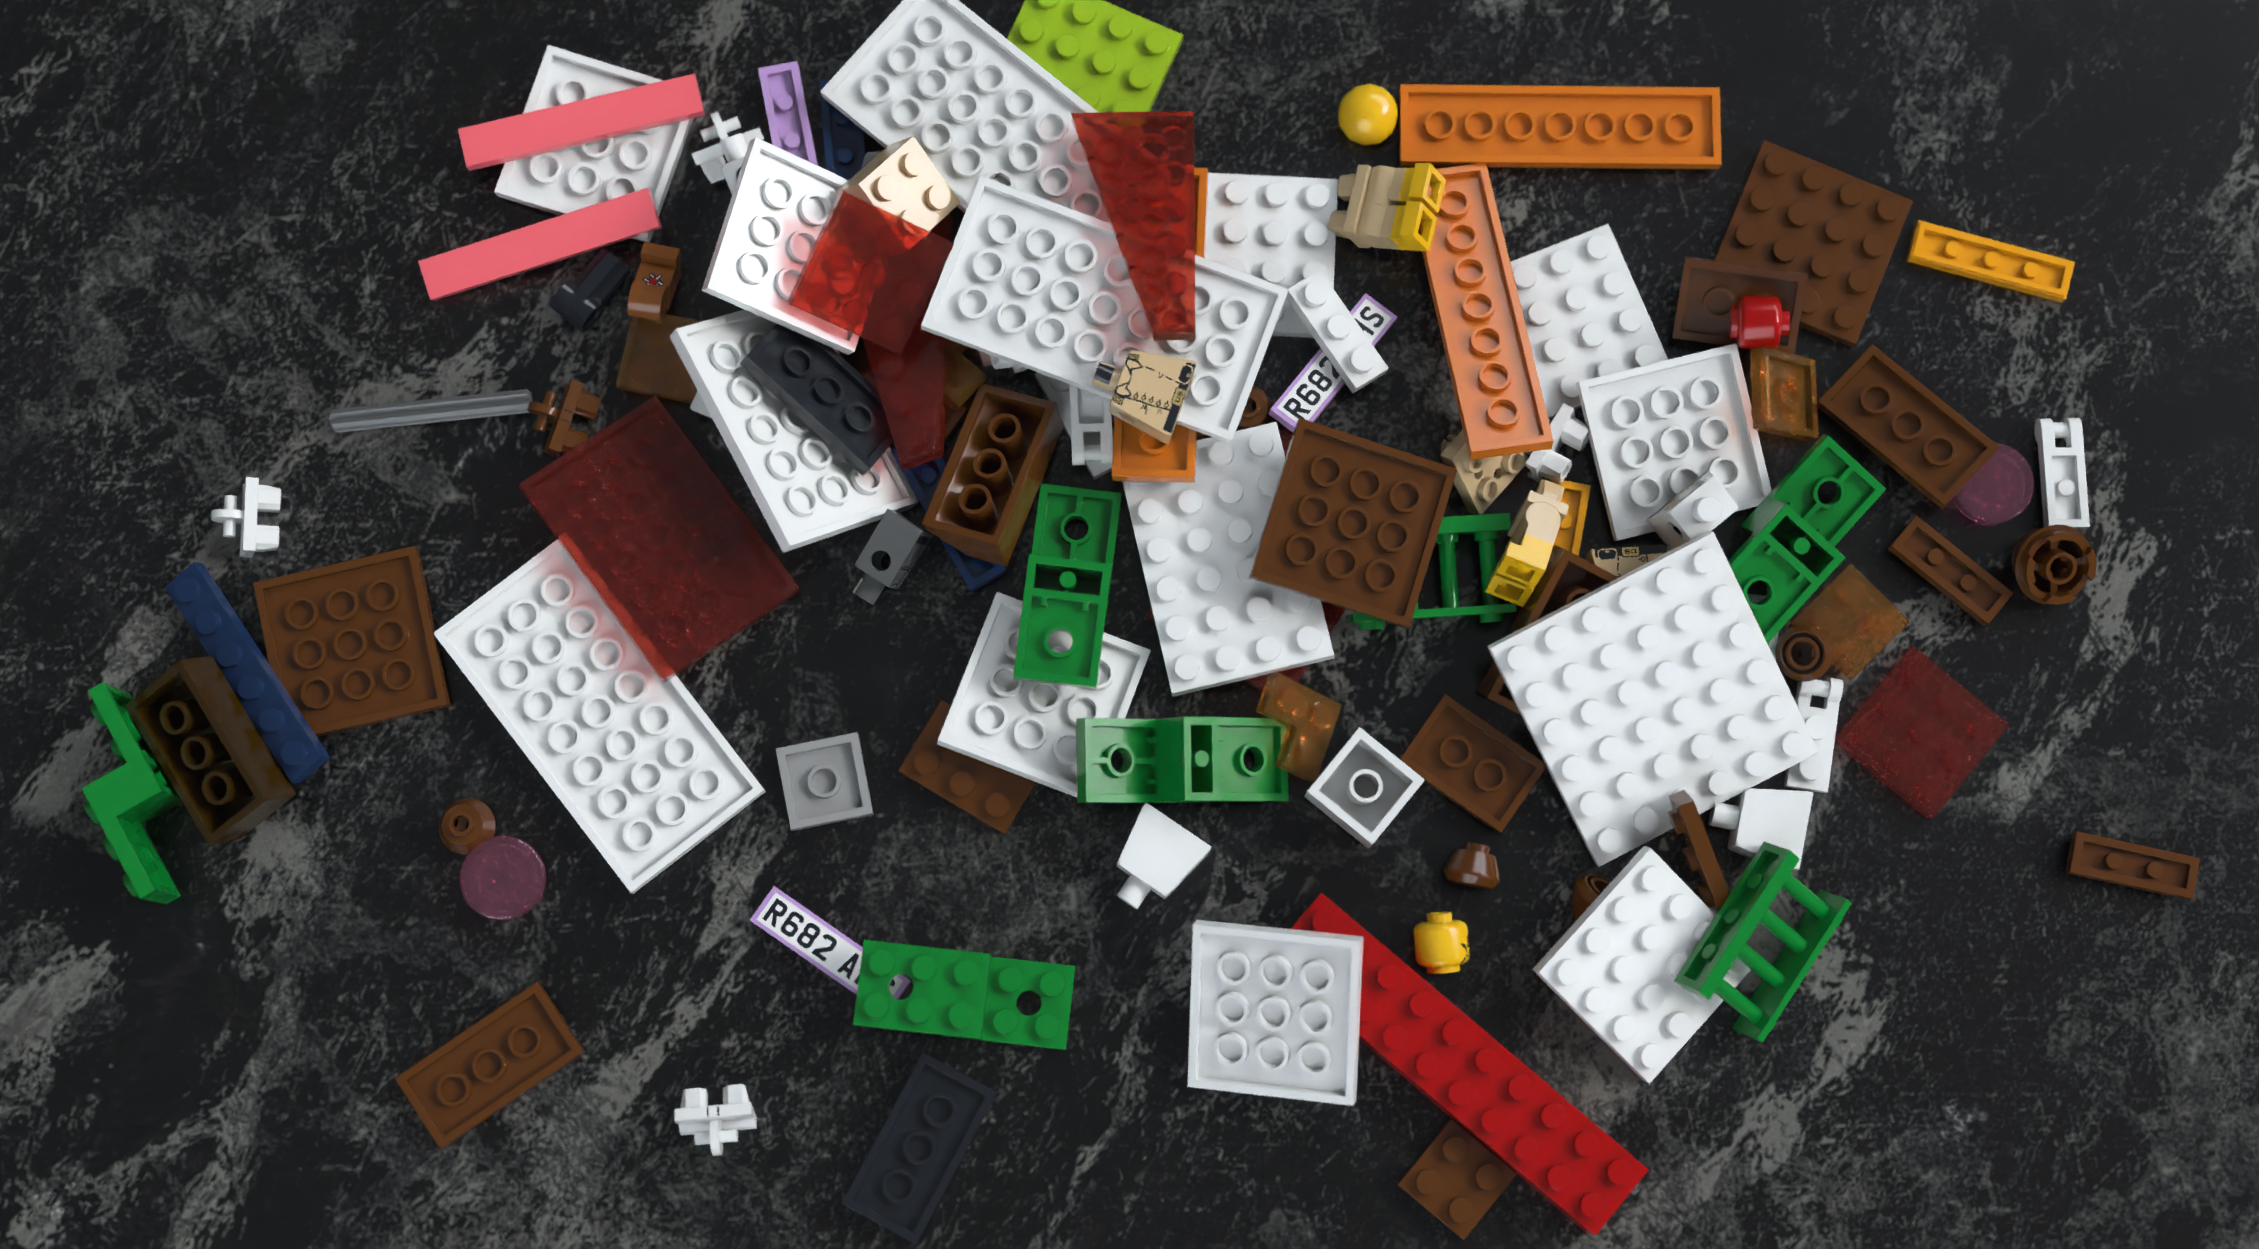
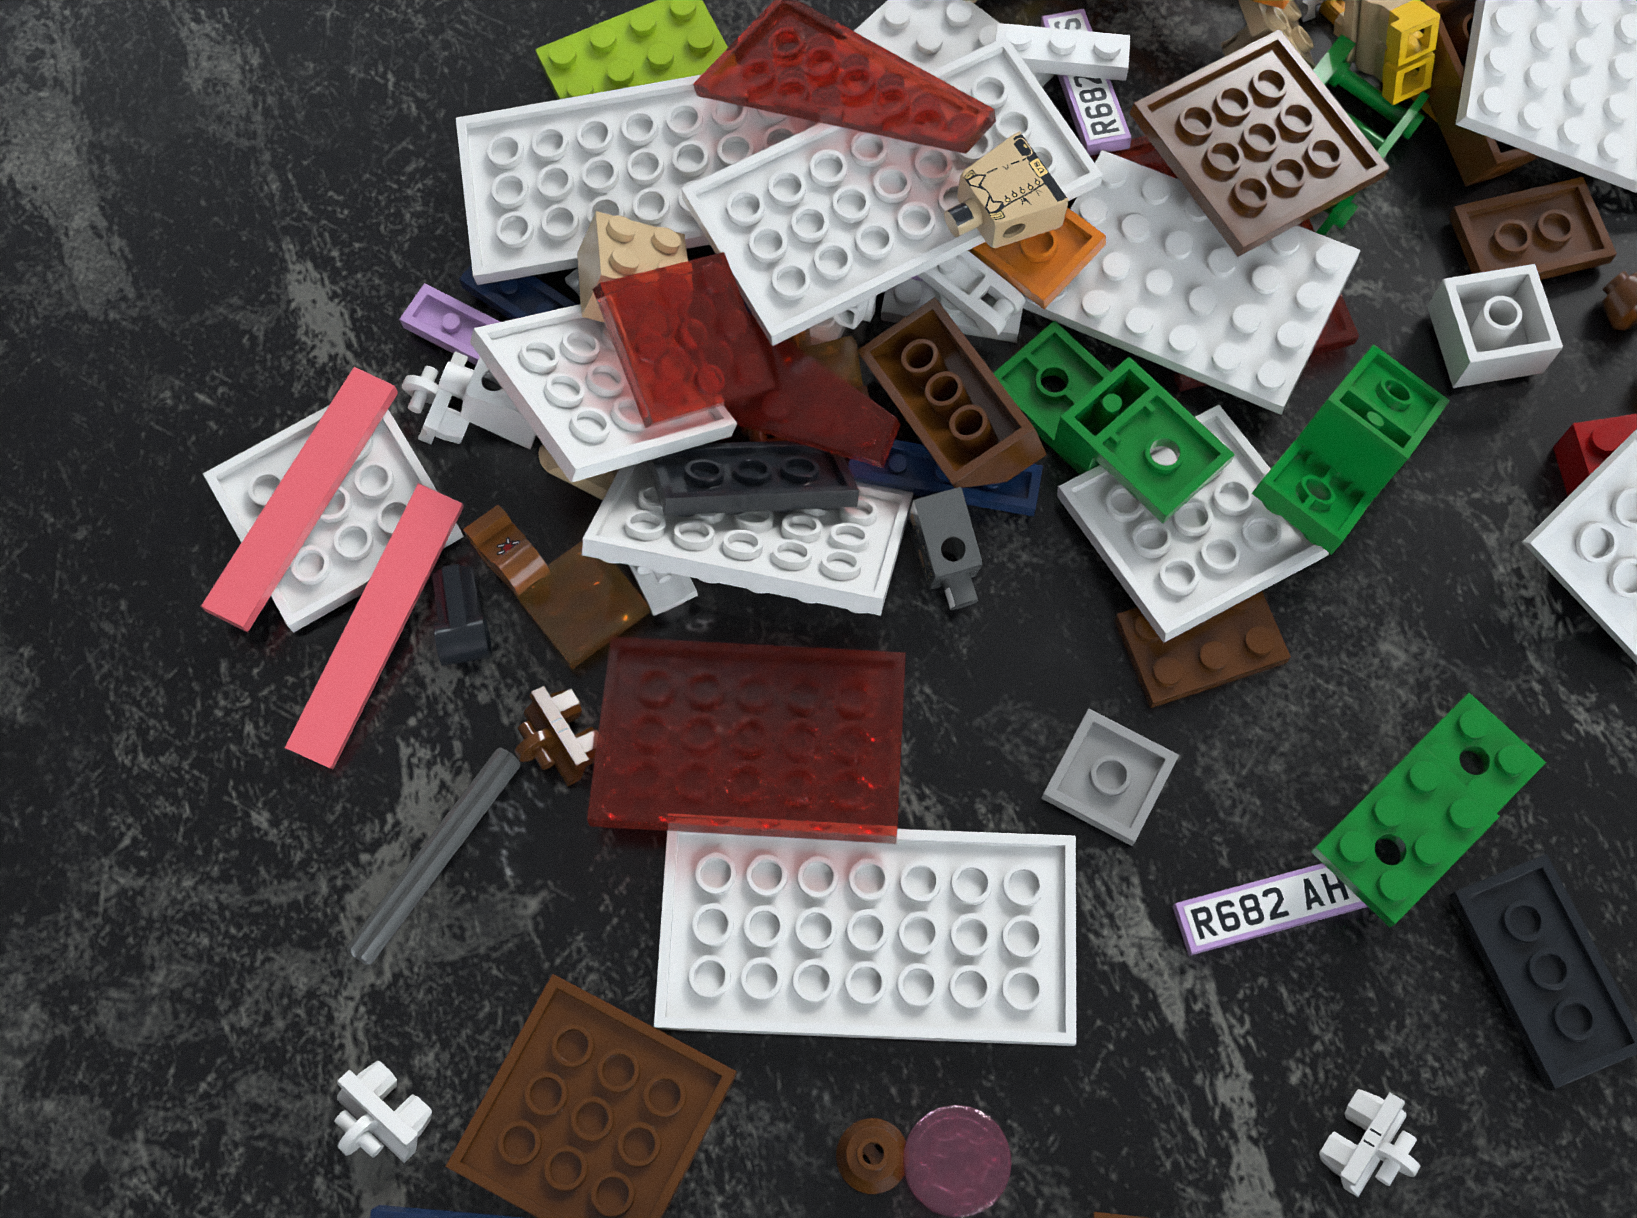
camera: 45 degrees left, 10 degrees down
(1157, 856) = (1418, 541): white torso -> none
(1309, 723) = (1390, 326): clear orange plate -> none

